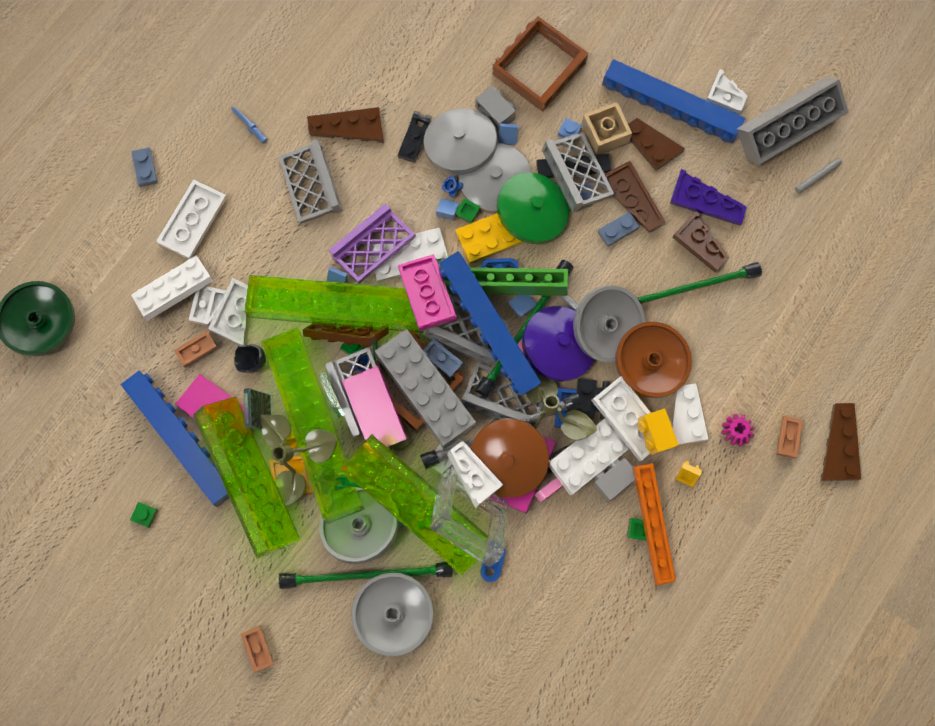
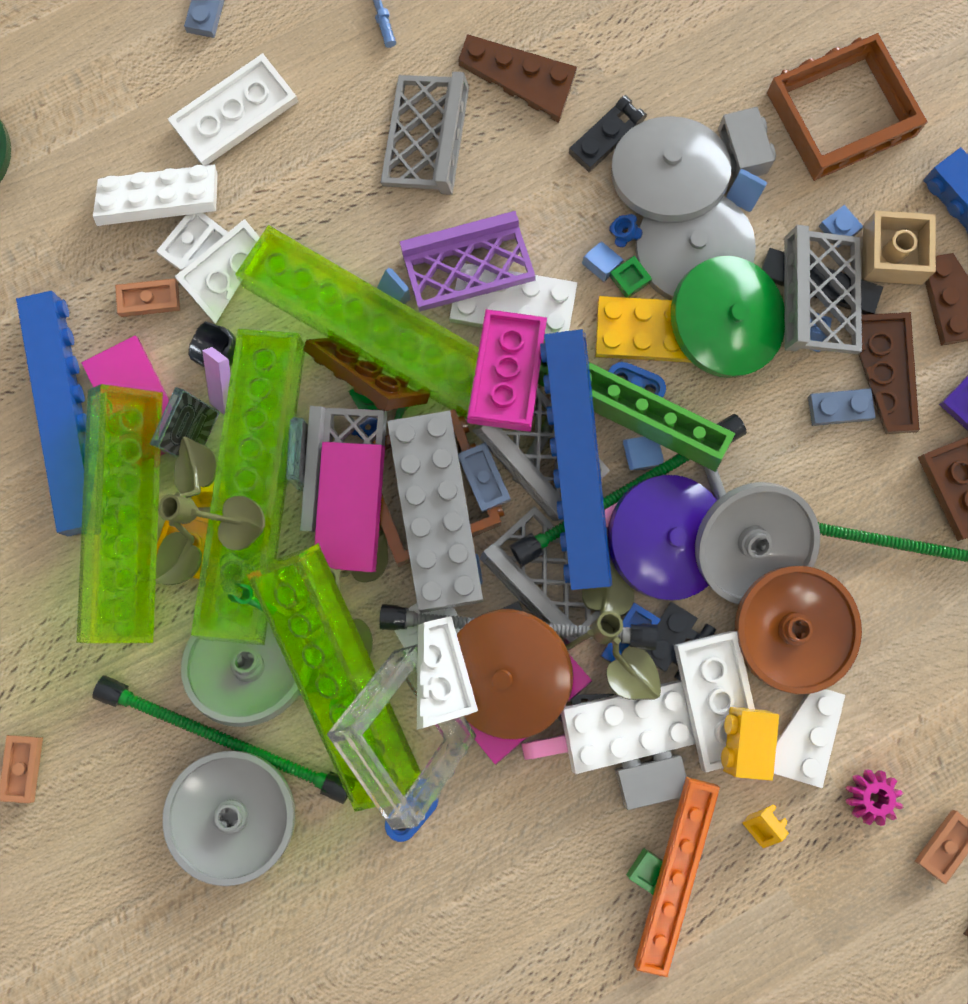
camera: 30 degrees right, 5 degrees up
(263, 375) = (217, 377): none -> lavender tile

